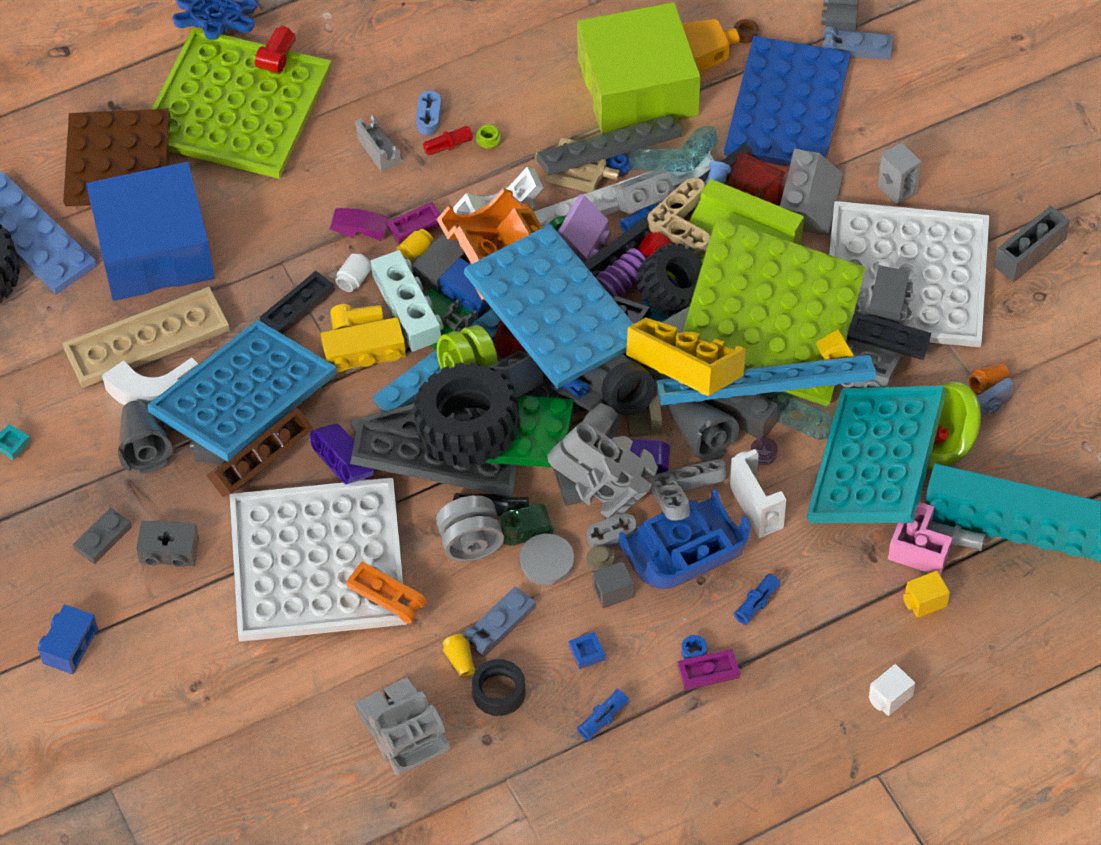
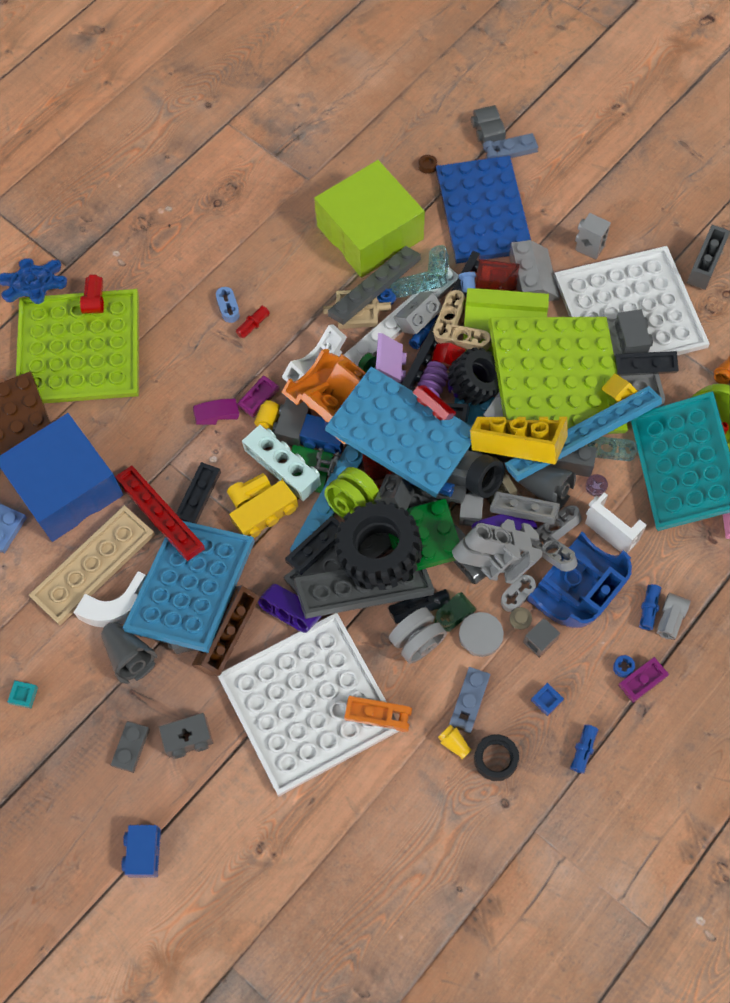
camera: 20 degrees left, 10 degrees up
(243, 306) = (160, 513): none -> red plate
(353, 272) = (229, 453): white brick -> none
(378, 144) = (201, 343): light grey hinge -> none
(391, 401) = (313, 546): none -> black plate
(403, 724) = (442, 822): light grey connector -> none
(488, 136) = (280, 304): lime plate -> none
(604, 290) = (430, 399): none -> plate
(660, 439) = (525, 507): none -> light grey tile
(709, 42) = (411, 178): light orange torso -> none
(783, 610) = (674, 611): none -> light grey piece

